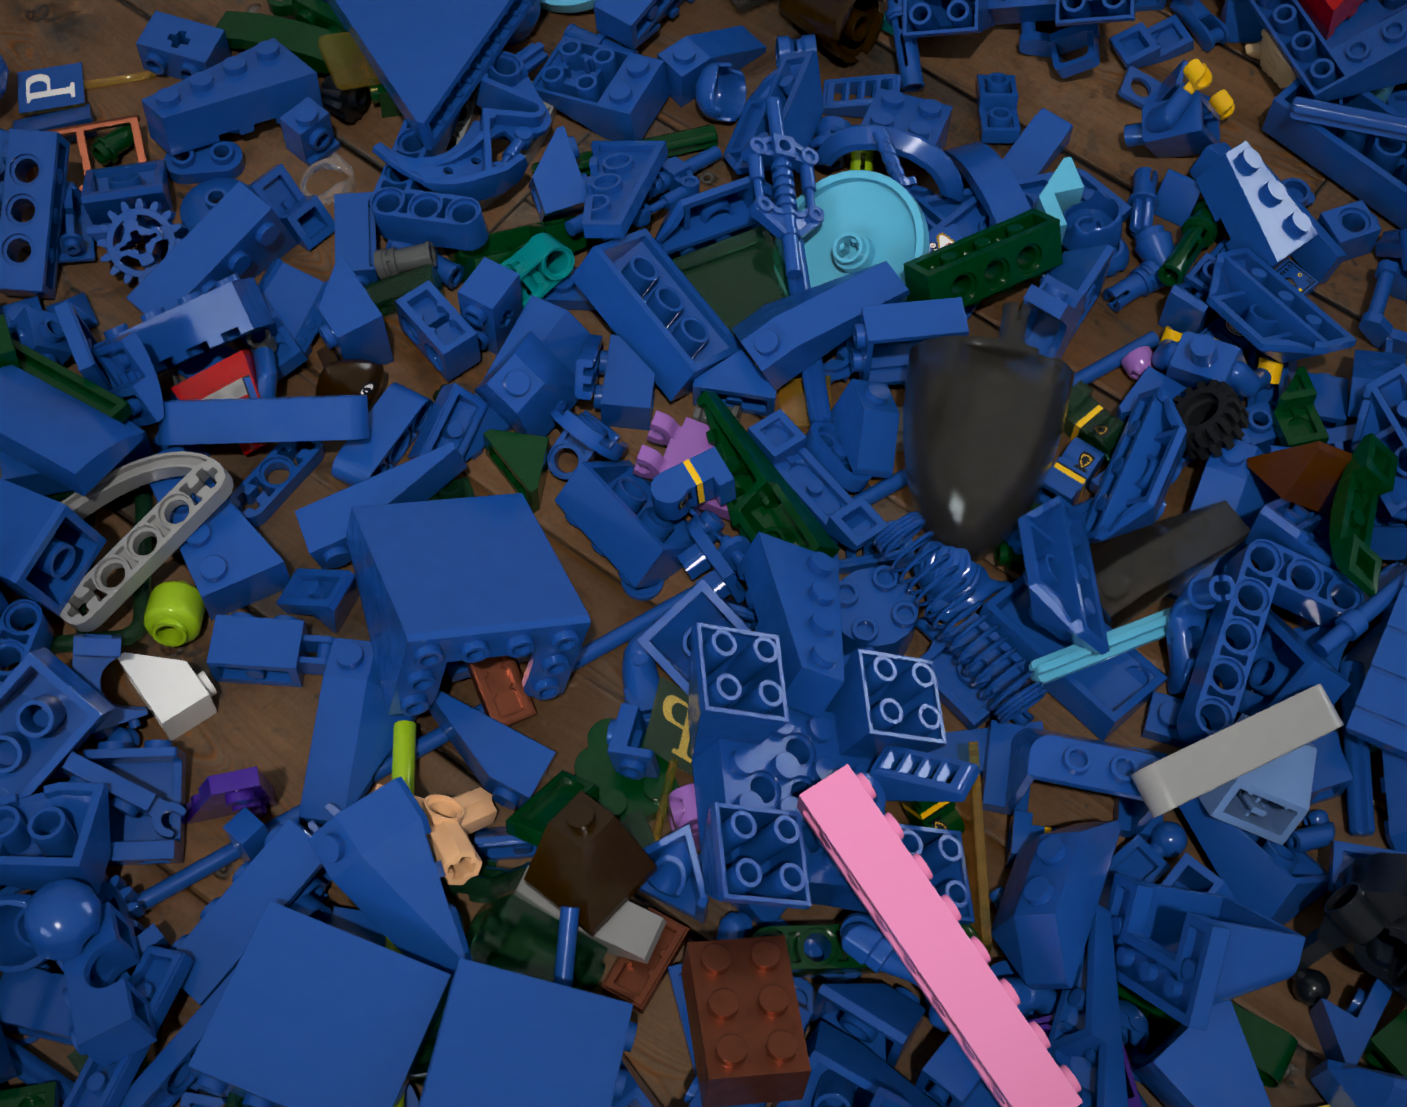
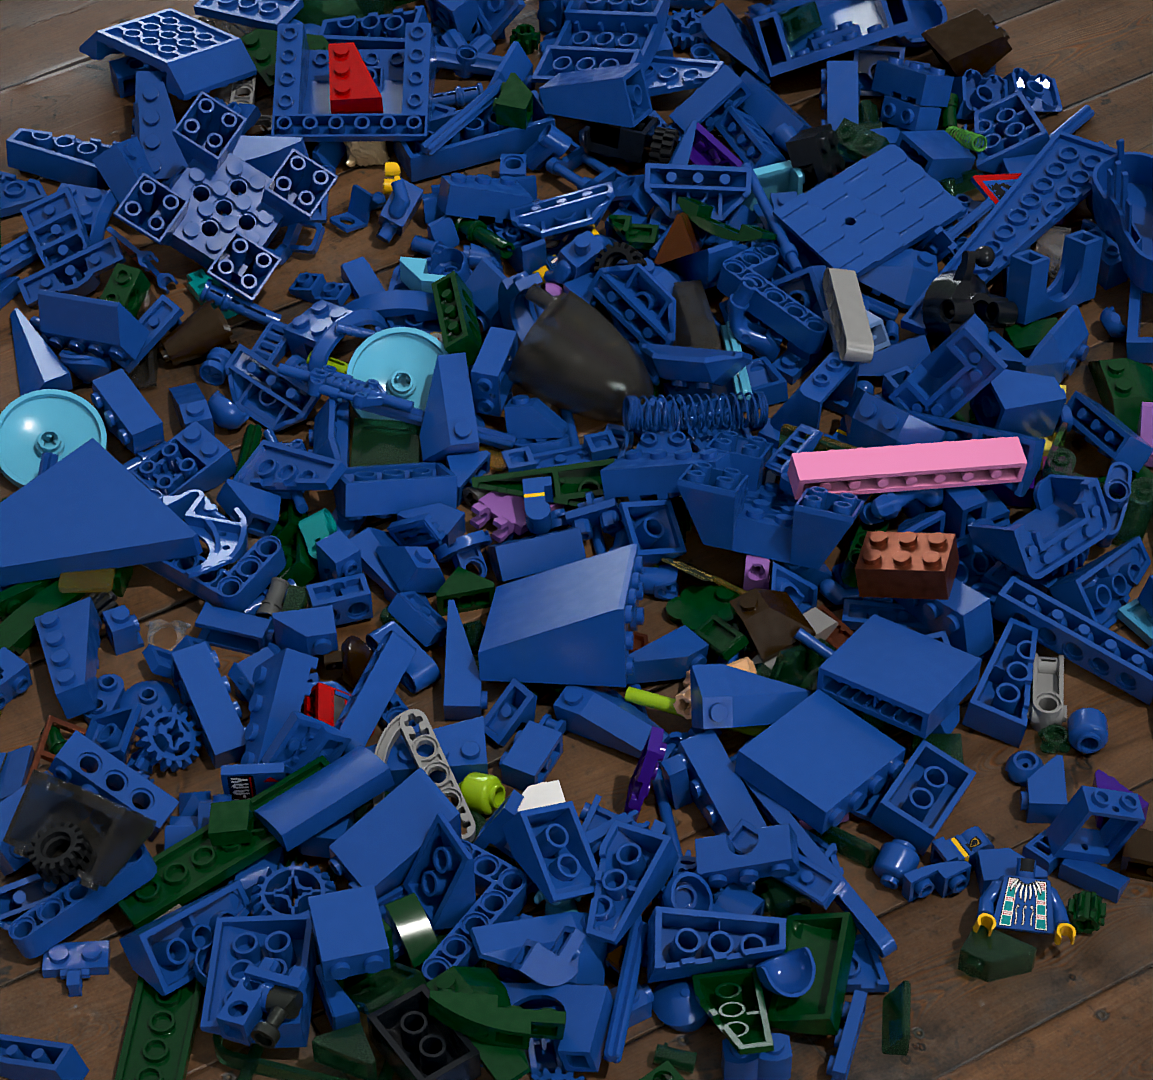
camera: 65 degrees left, 15 degrees down
(62, 918) = (700, 856): blue hair -> none
(625, 742) = (695, 591): blue bracket -> none

